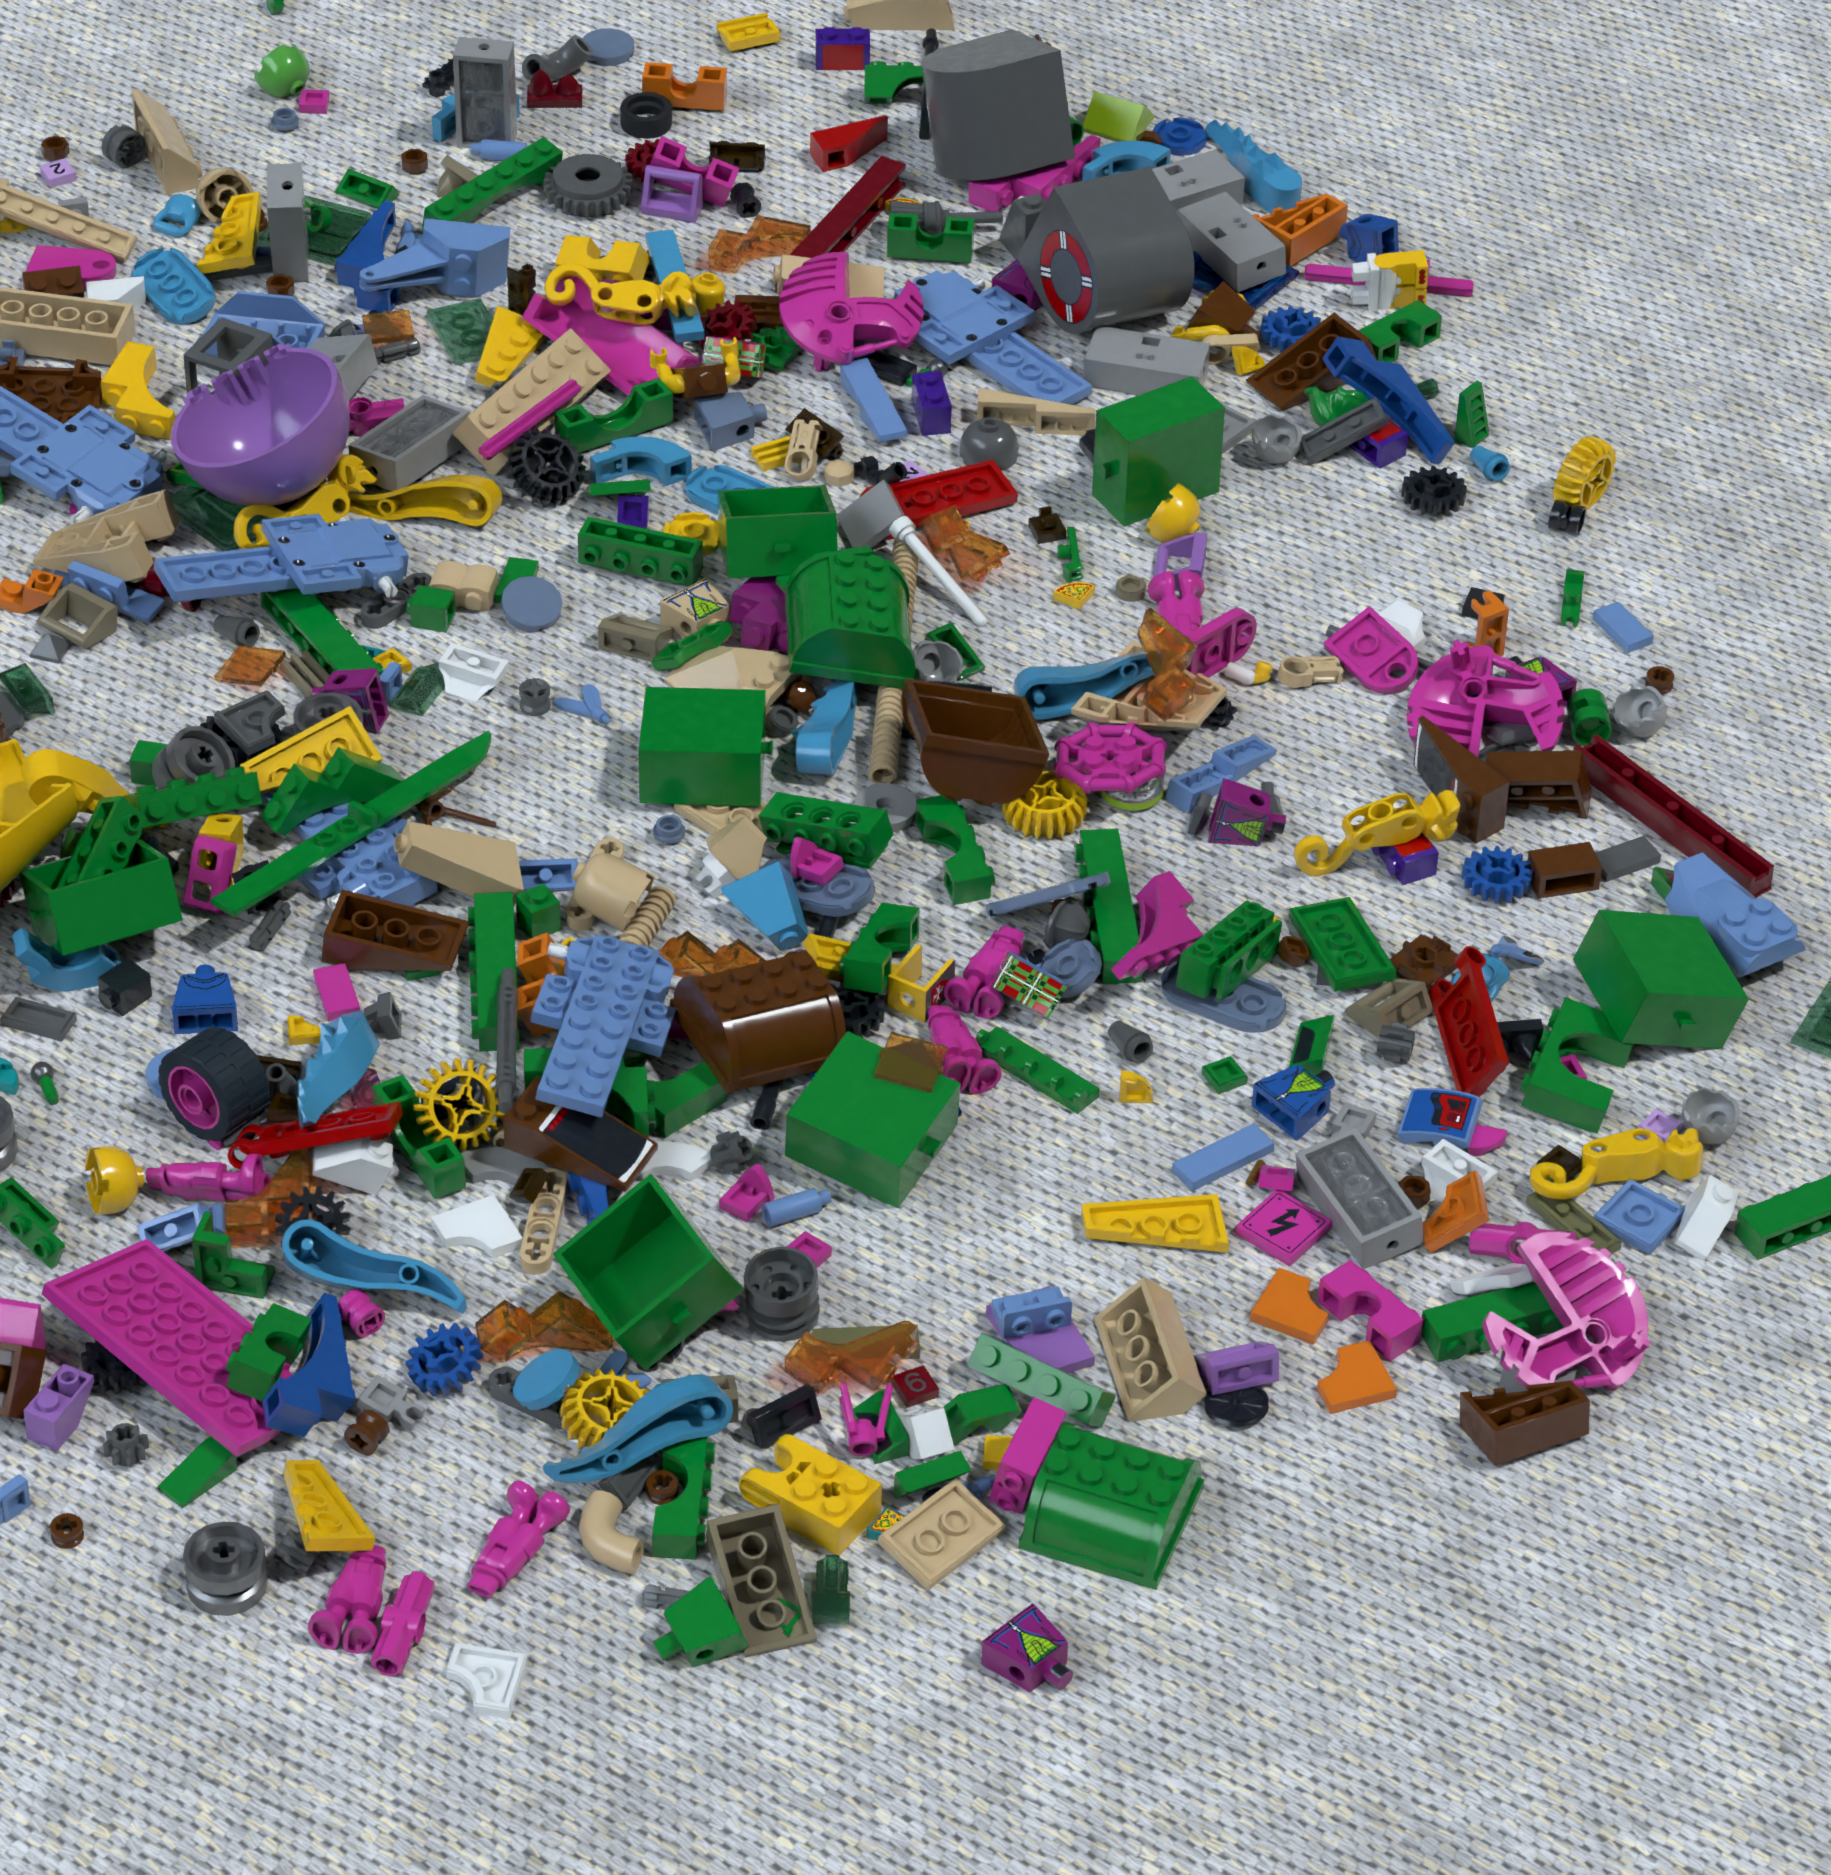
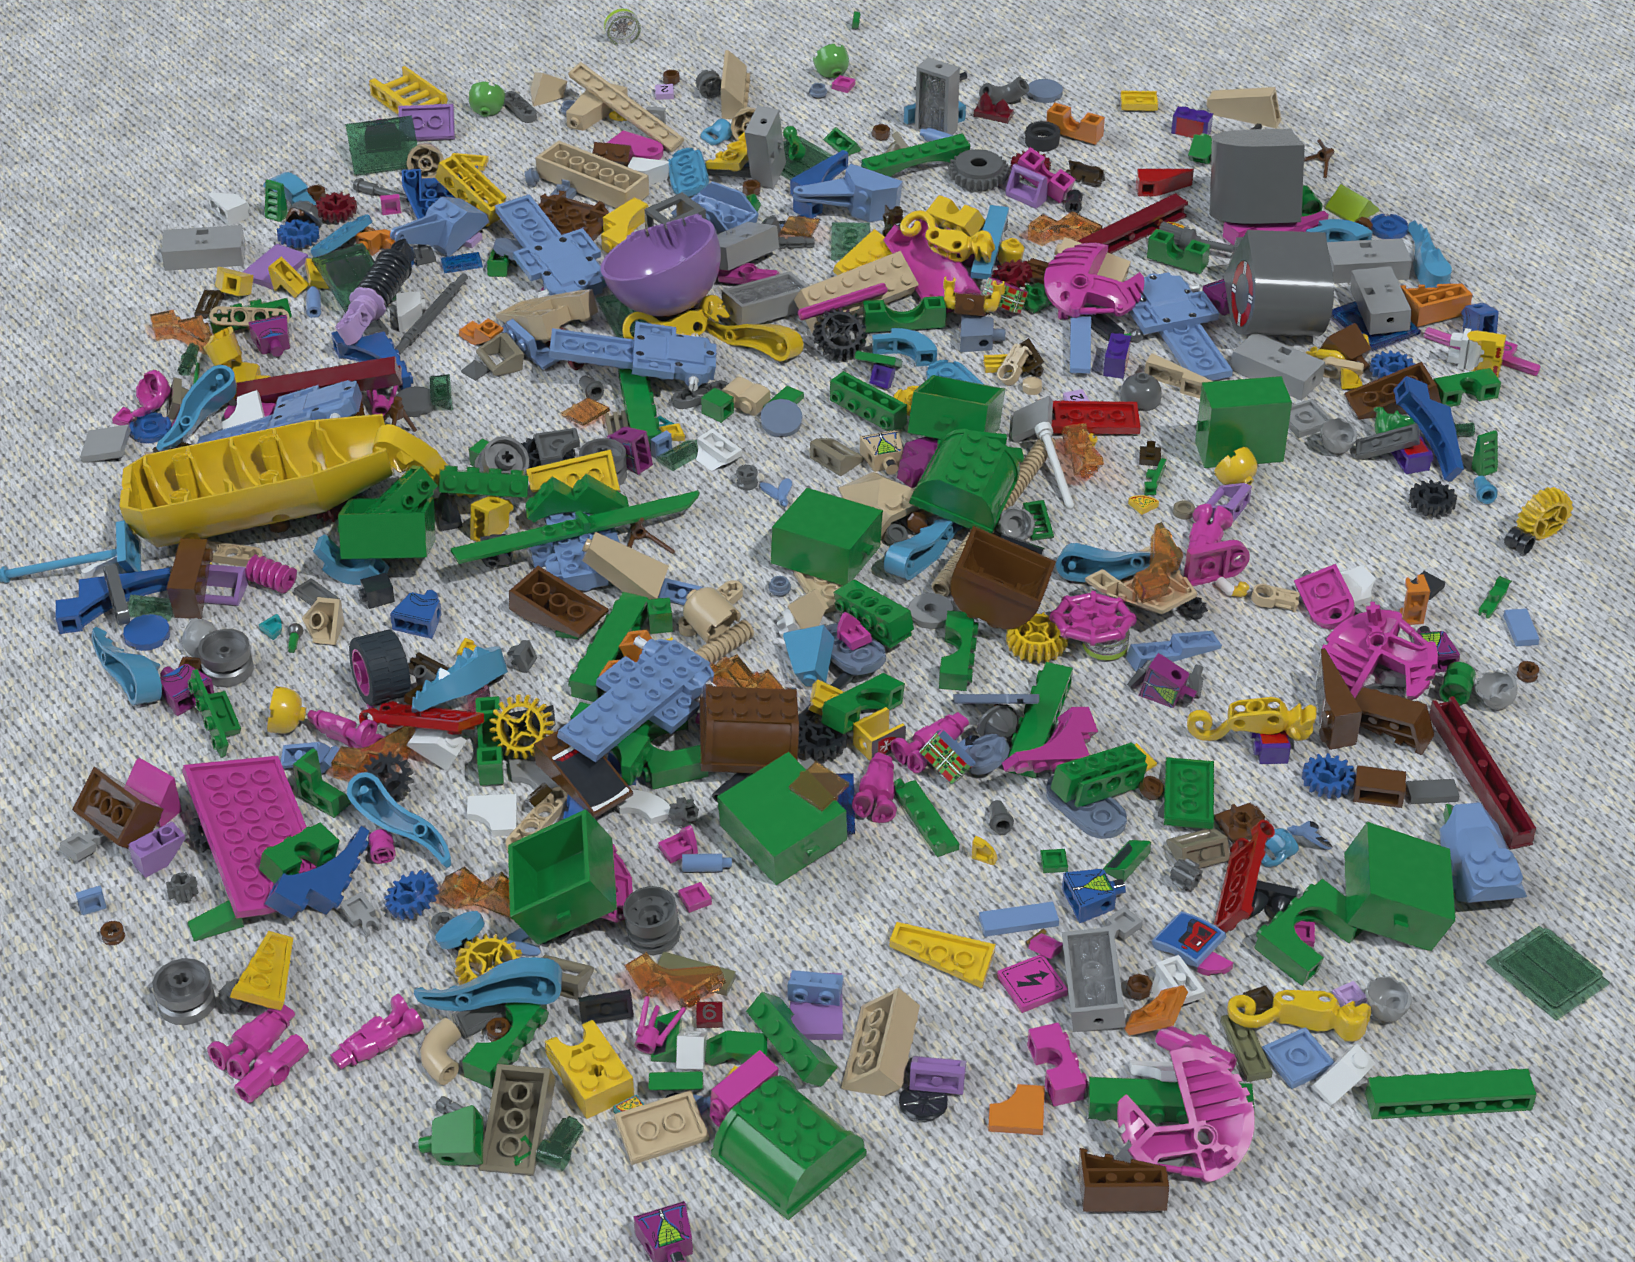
camera: 25 degrees right, 0 degrees up
(76, 1047) = (324, 620): none -> tan slope
(218, 879) = (477, 530): dark pink piece -> none
(270, 925) = (492, 577): dark grey axle -> none
(335, 991) = (506, 630): dark pink tile -> none
(367, 1431) = (333, 928): reddish brown wheel -> none
(489, 1675) = (305, 1125): white tile -> none
(506, 1040) = (574, 693): dark grey axle -> none
(680, 651) = (871, 469): green tile -> none
(869, 467) = (1052, 388): black piece -> none
(1288, 1307) = (1002, 1042): orange tile -> none

